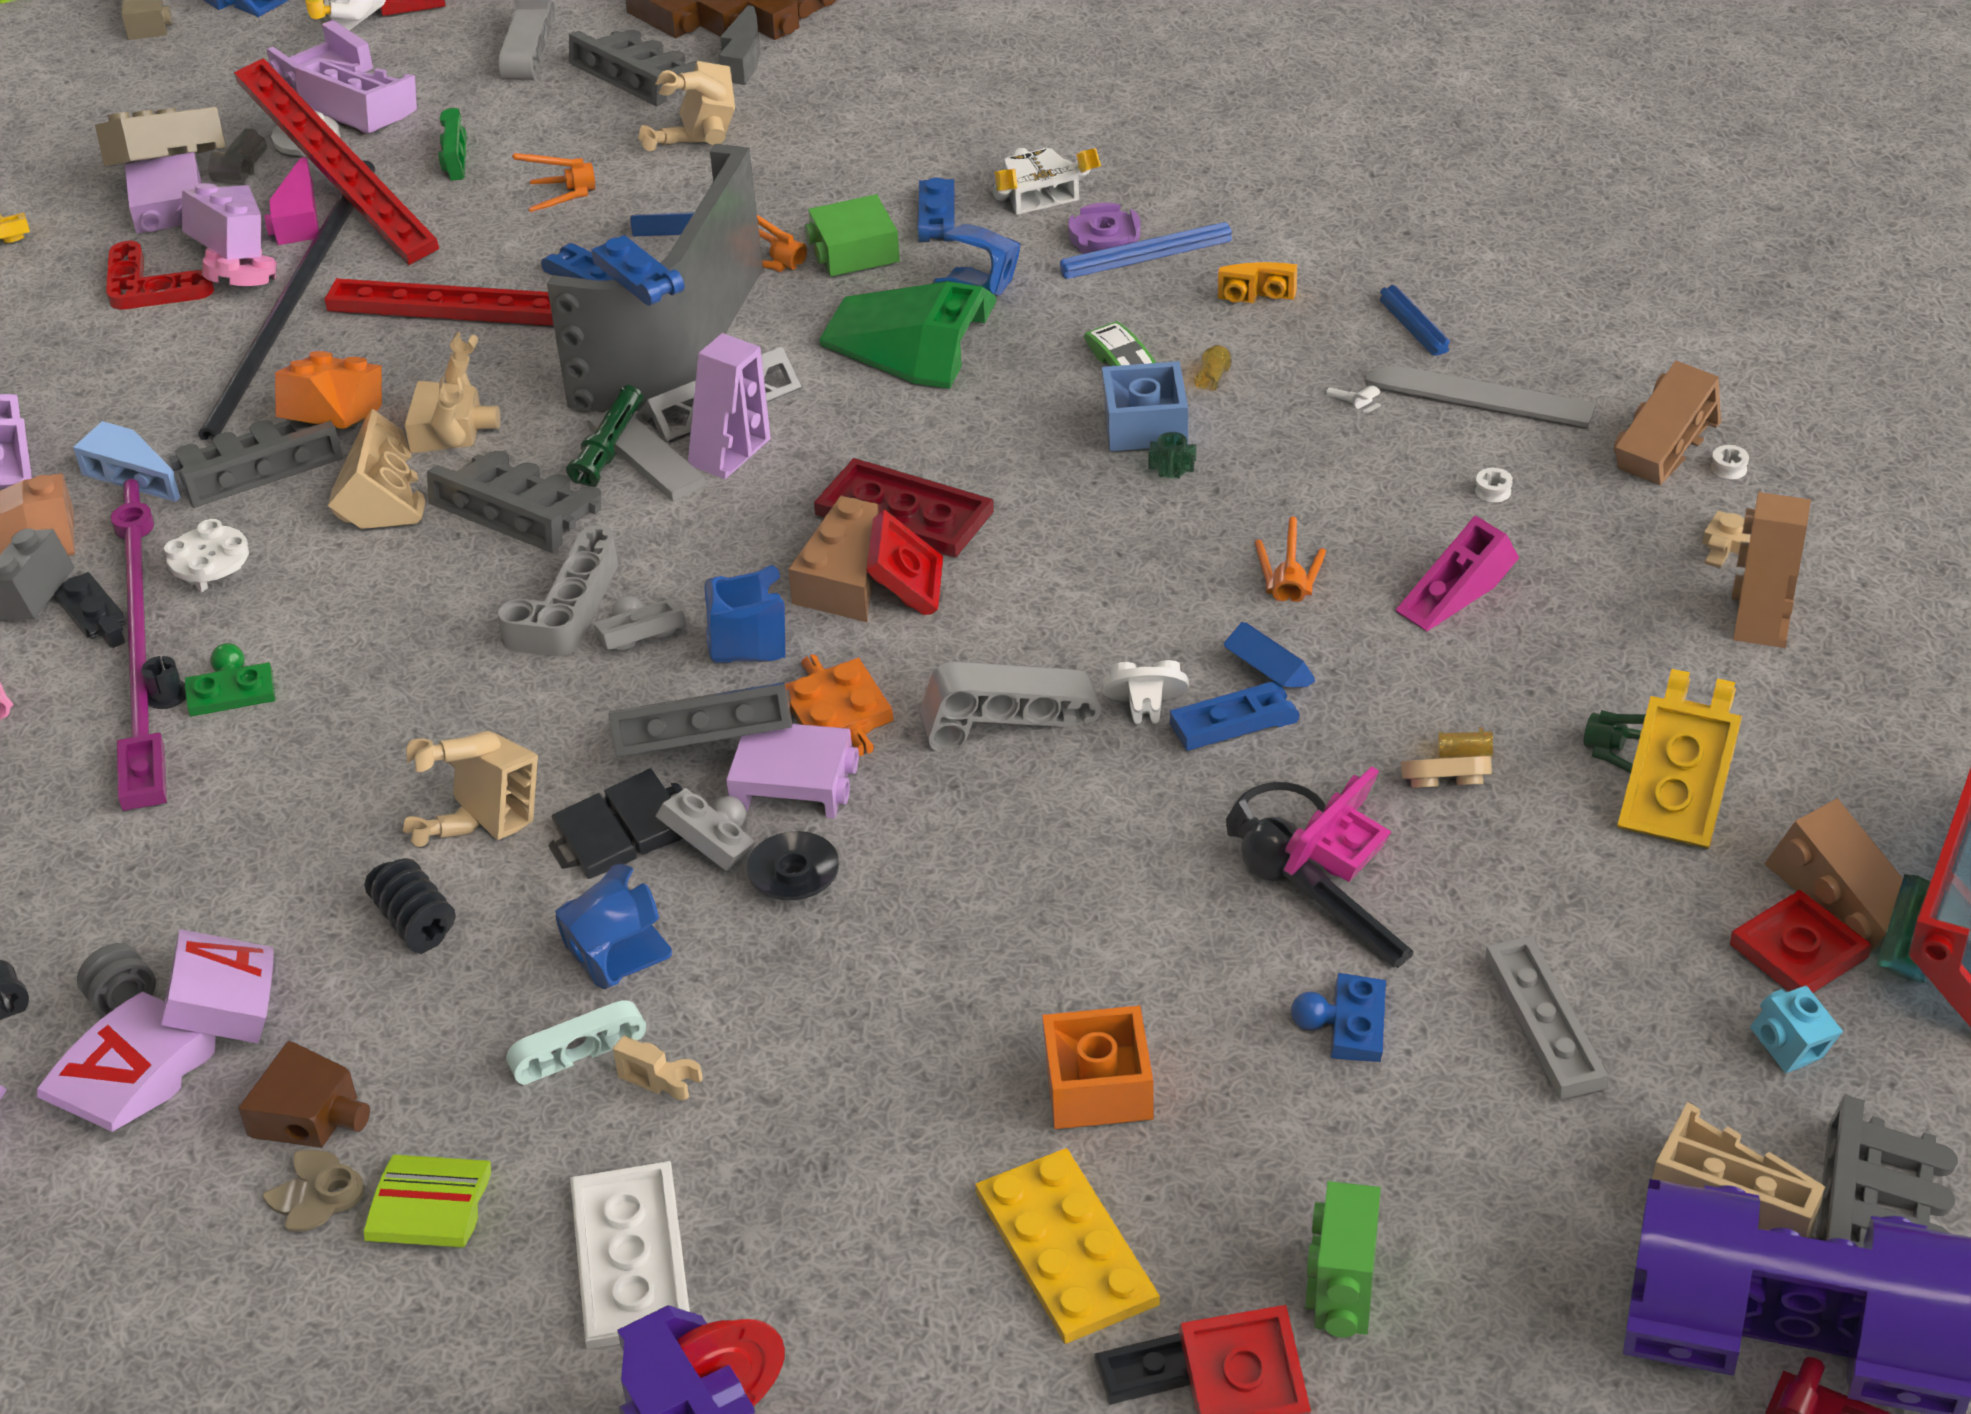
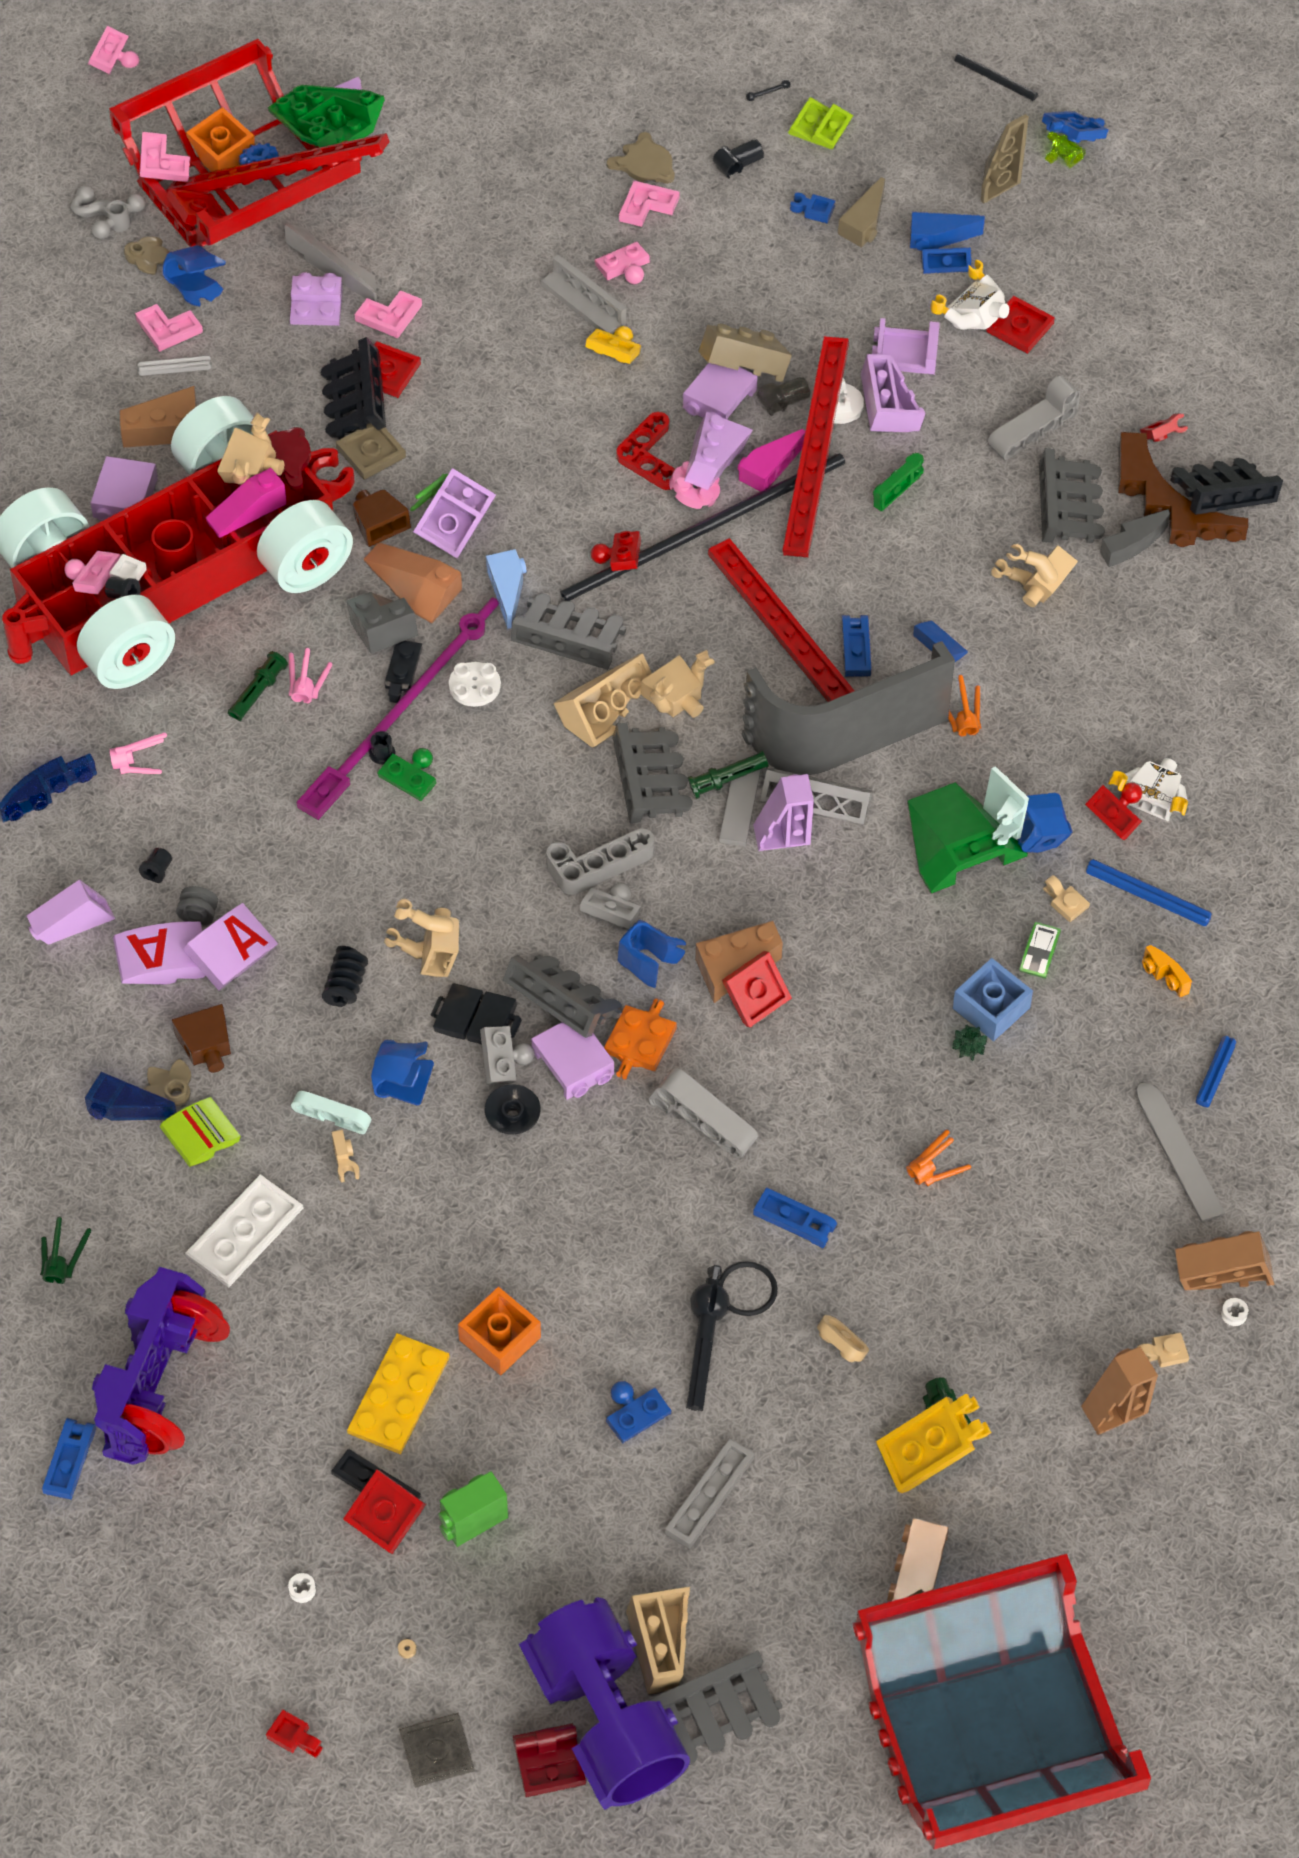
camera: 45 degrees right, 15 degrees up
(76, 31) = (816, 208): none -> blue plate
(224, 355) = (623, 554): none -> red plate
(281, 1249) = (123, 1101): none -> clear blue slope
(328, 389) = (634, 623): orange slope -> none
(577, 177) = (929, 566): orange plant -> none
(637, 270) = (792, 702): blue plate -> none
(852, 235) = (1006, 743): bright green brick -> none
(931, 510) = (810, 951): dark red plate -> none
(935, 250) = (1006, 805): none -> light aqua plate
(936, 208) = (1082, 761): blue plate -> none
(1027, 215) = (1115, 811): none -> red plate
(1084, 305) = (1066, 902): none -> tan plate
(1103, 227) = (1151, 844): medium lavender plate -> none
(1145, 686) = (764, 1166): white plate -> none
(1215, 362) = (1069, 1004): clear yellow pin -> none
(1268, 657) = (850, 1203): blue slope -> none
(1340, 835) = (744, 1327): dark pink bracket -> none
(1357, 399) = (1114, 1094): white hand -> none
(1460, 575) = (1002, 1245): dark pink slope -> none
(1465, 744) = (870, 1334): clear yellow pin -> none
(1493, 493) = (1103, 1202): white bush -> none
(1795, 1028) = (784, 1611): medium azure brick -> none
(1800, 943) = (861, 1573): red plate -> none

